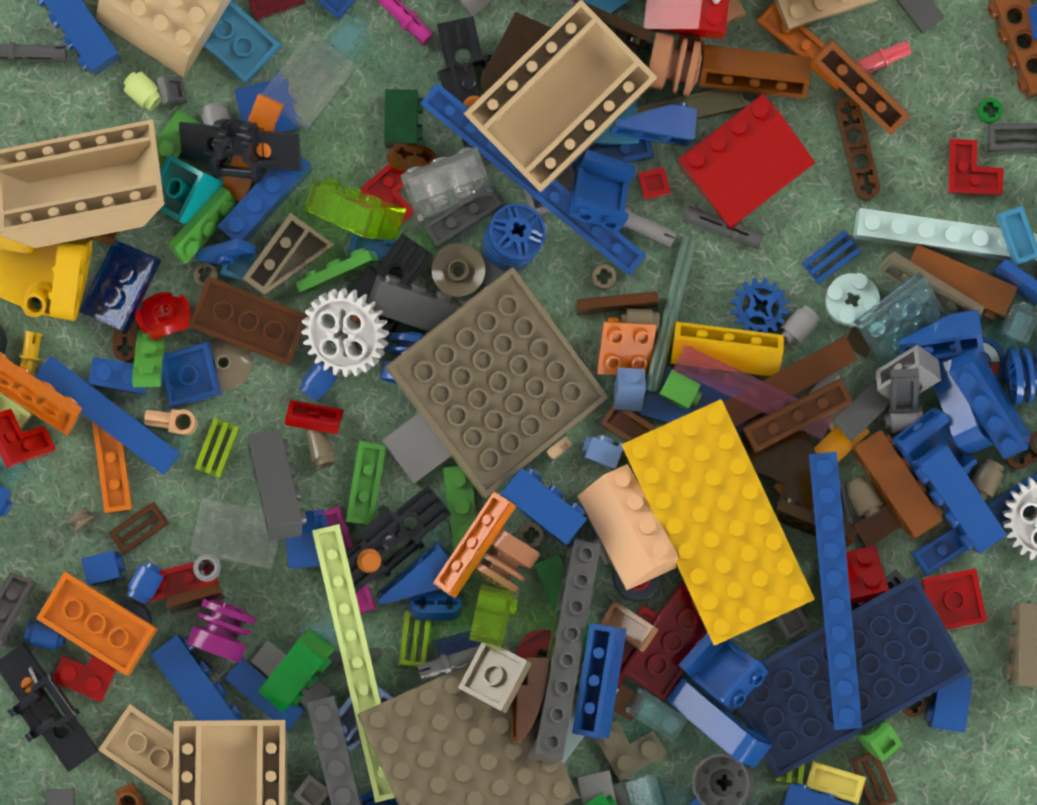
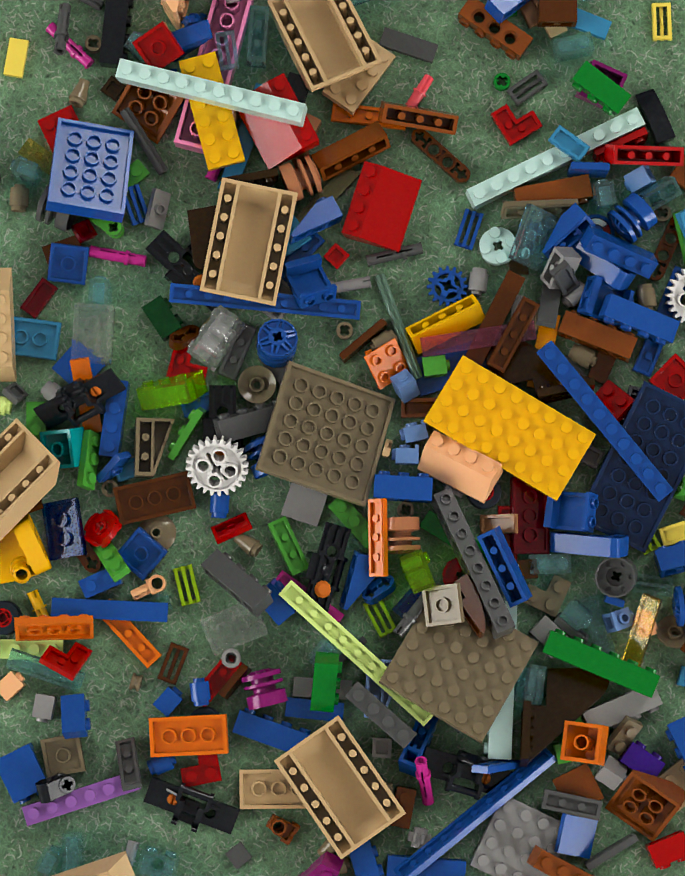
camera: 35 degrees left, 0 degrees up
(575, 470) = (406, 455): none -> medium blue brick

